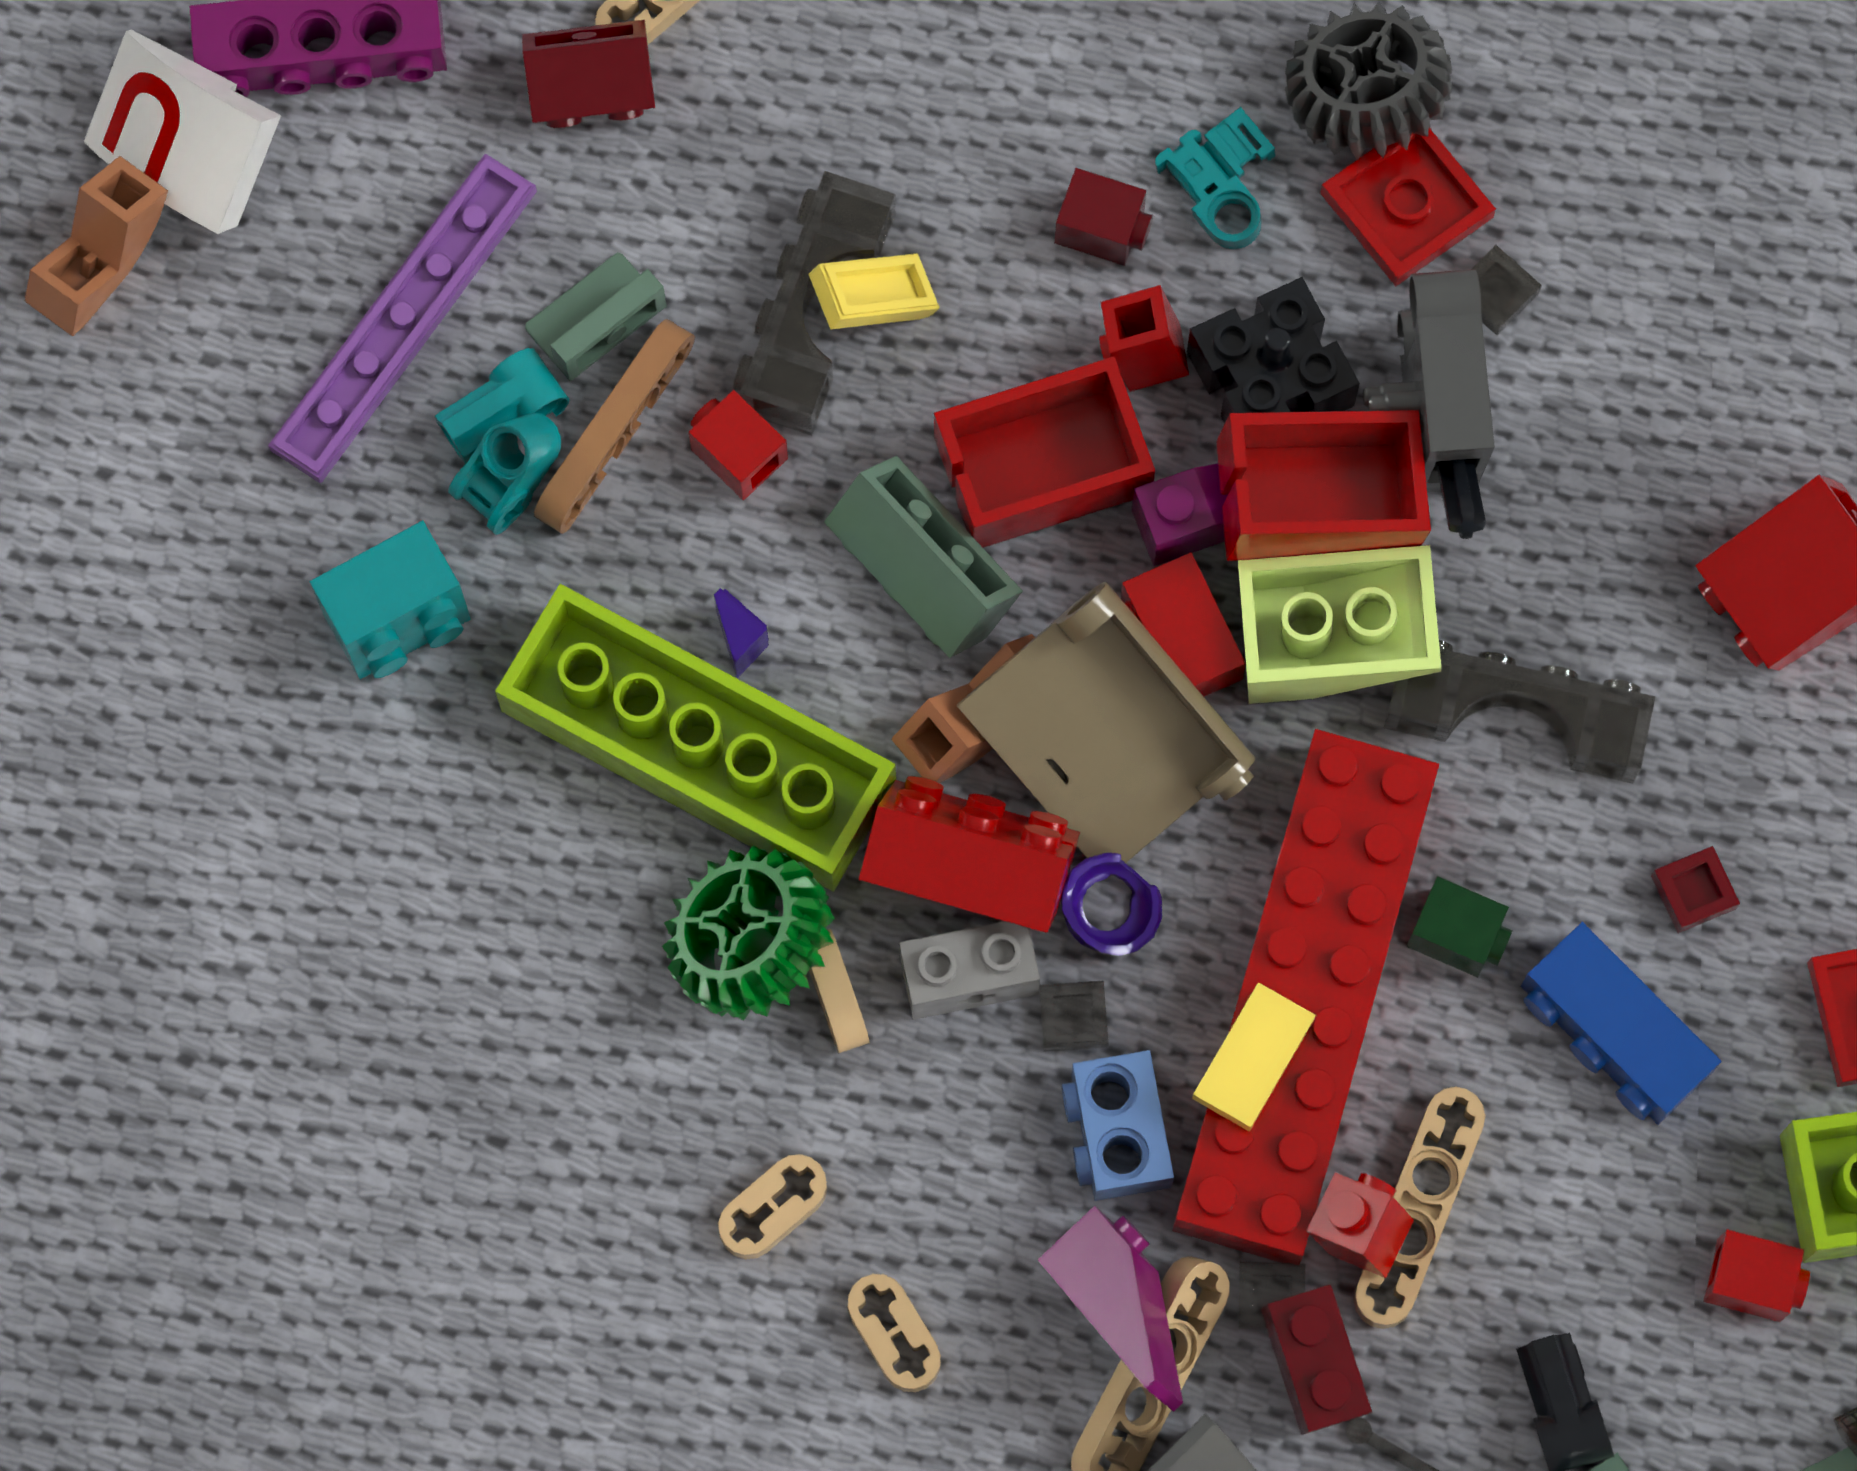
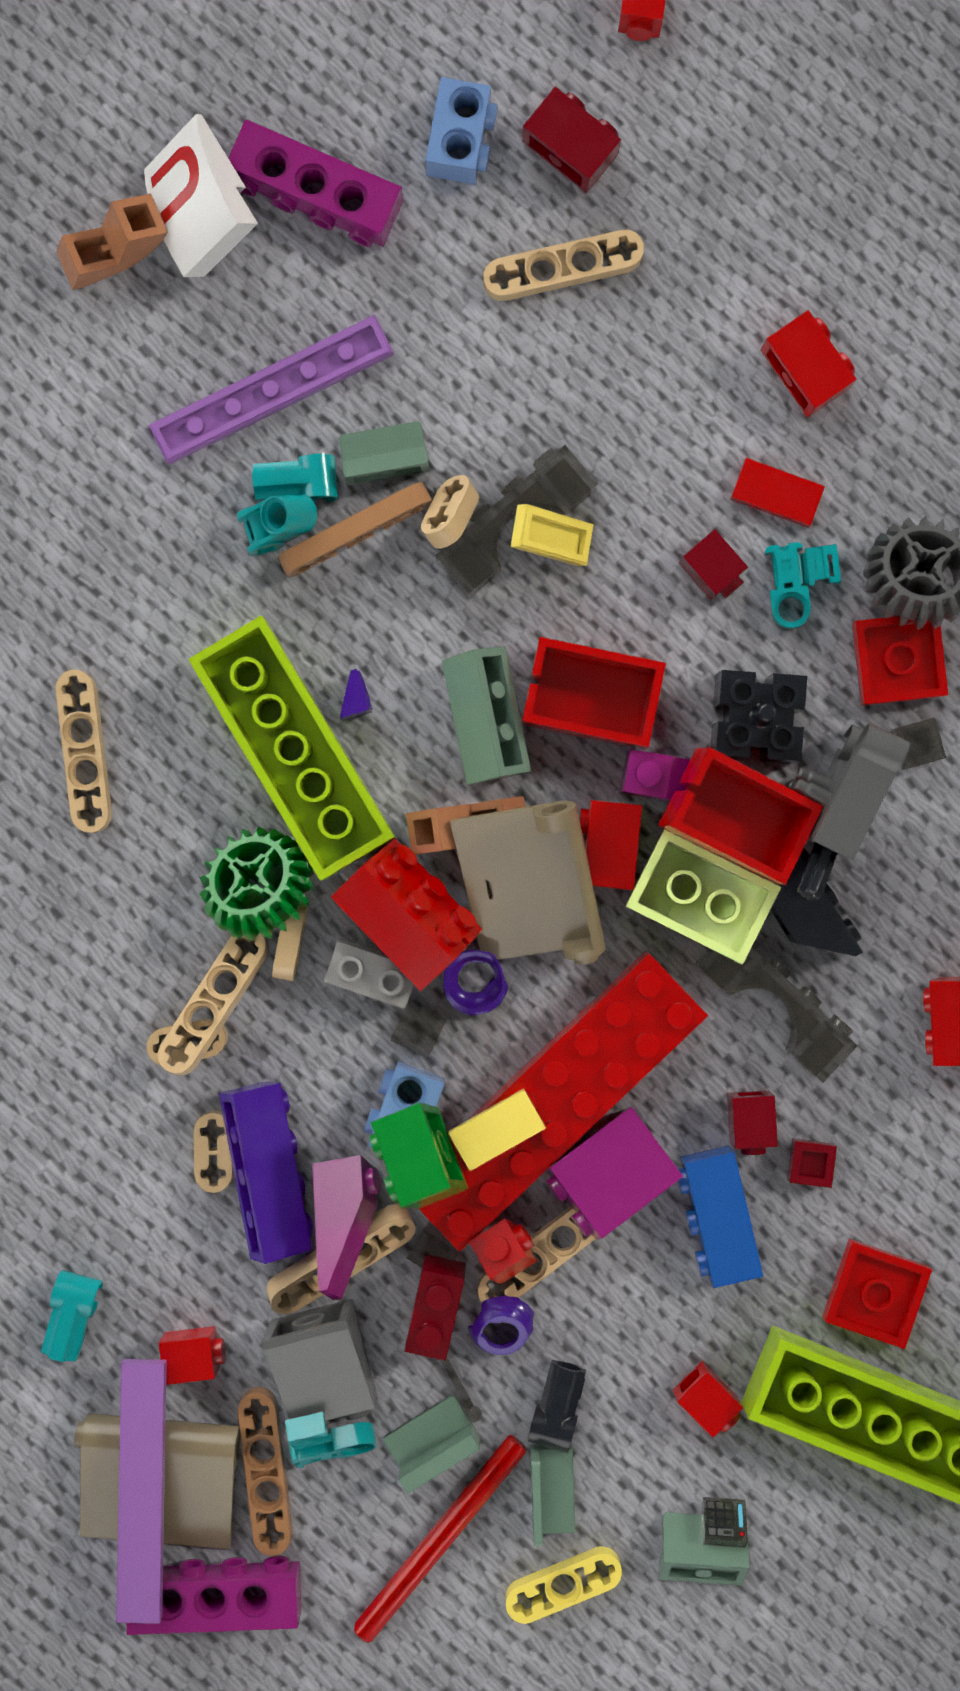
camera: 30 degrees right, 15 degrees up
(392, 602) = (160, 567): teal brick -> none
(419, 902) = (76, 752): none -> tan beam
(588, 73) = (461, 299): dark red brick -> none
(725, 333) = (450, 511): none -> tan beam
(737, 443) = (419, 581): red brick -> none
(776, 1124) = (219, 1004): none -> tan beam
(979, 1309) = (266, 1171): none -> dark purple brick
(1128, 89) = (777, 492): none -> red tile
(1143, 338) = (692, 657): red brick -> none
(1173, 1134) = (417, 1156): none -> green brick
(1402, 1312) = (499, 1310): none -> dark purple piece
(1442, 1044) = (612, 1174): none -> magenta brick
(1460, 928) = (664, 1110): dark green brick -> none
(1495, 575) = (811, 921): none -> black slope
(1583, 877) = (752, 1121): none -> dark red brick

